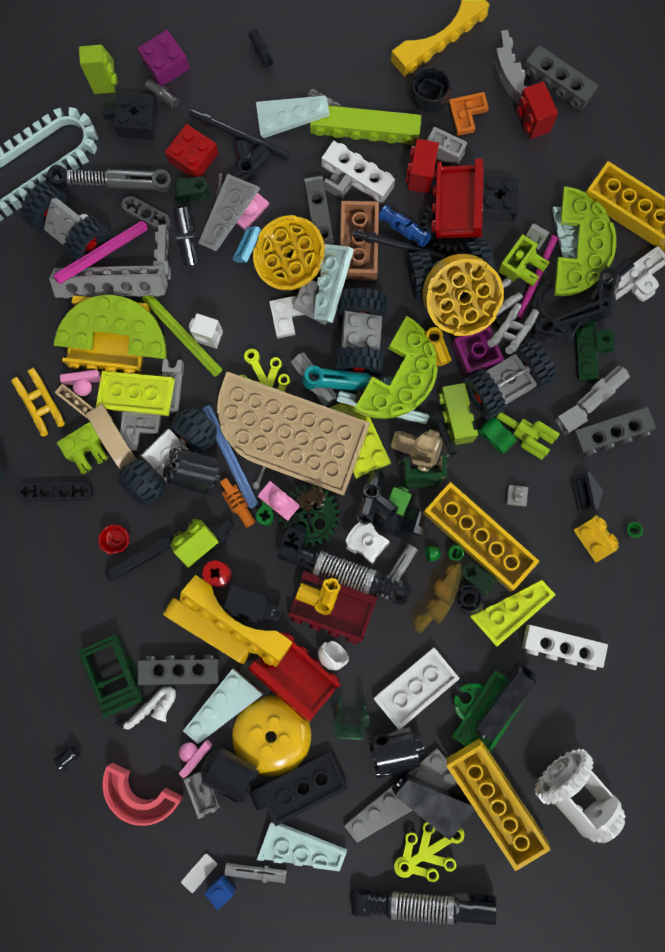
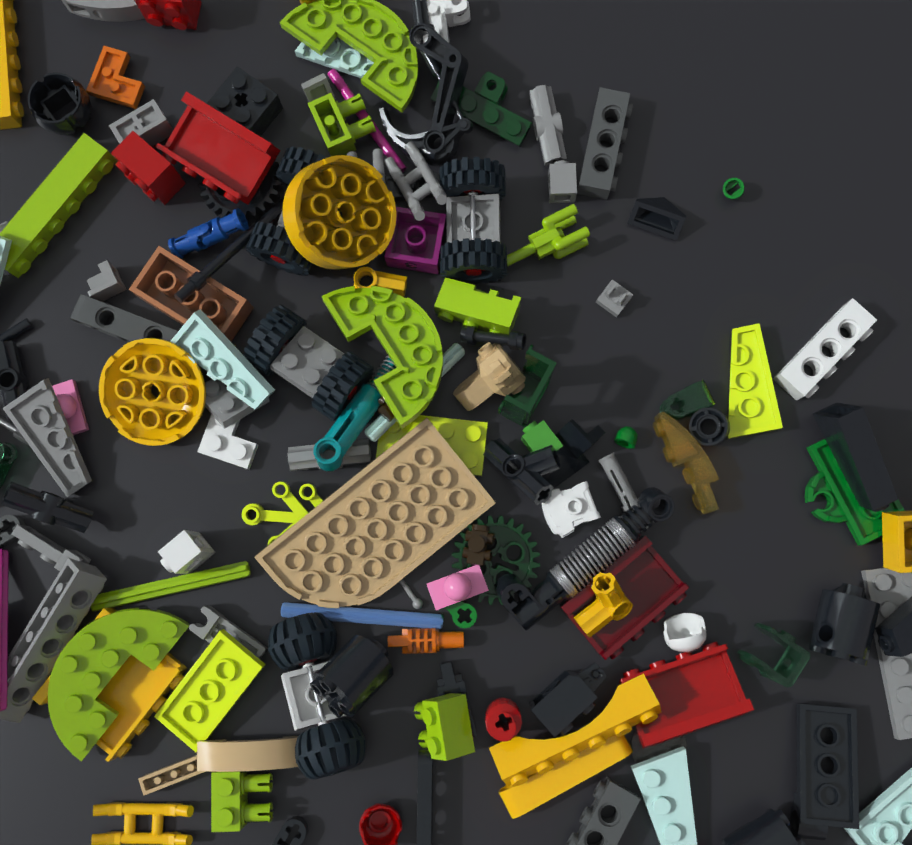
camera: 55 degrees left, 0 degrees up
(81, 381) = (150, 751): bright pink tile -> none
(136, 423) = (248, 713): light grey plate -> none
(246, 244) = (108, 437): medium azure plate -> none
(276, 756) = (762, 785): yellow brick -> none
(361, 181) = (119, 252): white brick -> none
(416, 688) = (779, 554): white plate -> none
(458, 555) = (644, 407): green hinge -> none
(481, 537) = (641, 369): yellow brick -> none
(497, 435) = (529, 277): green axle -> none
(597, 538) = (718, 237): yellow bracket -> none

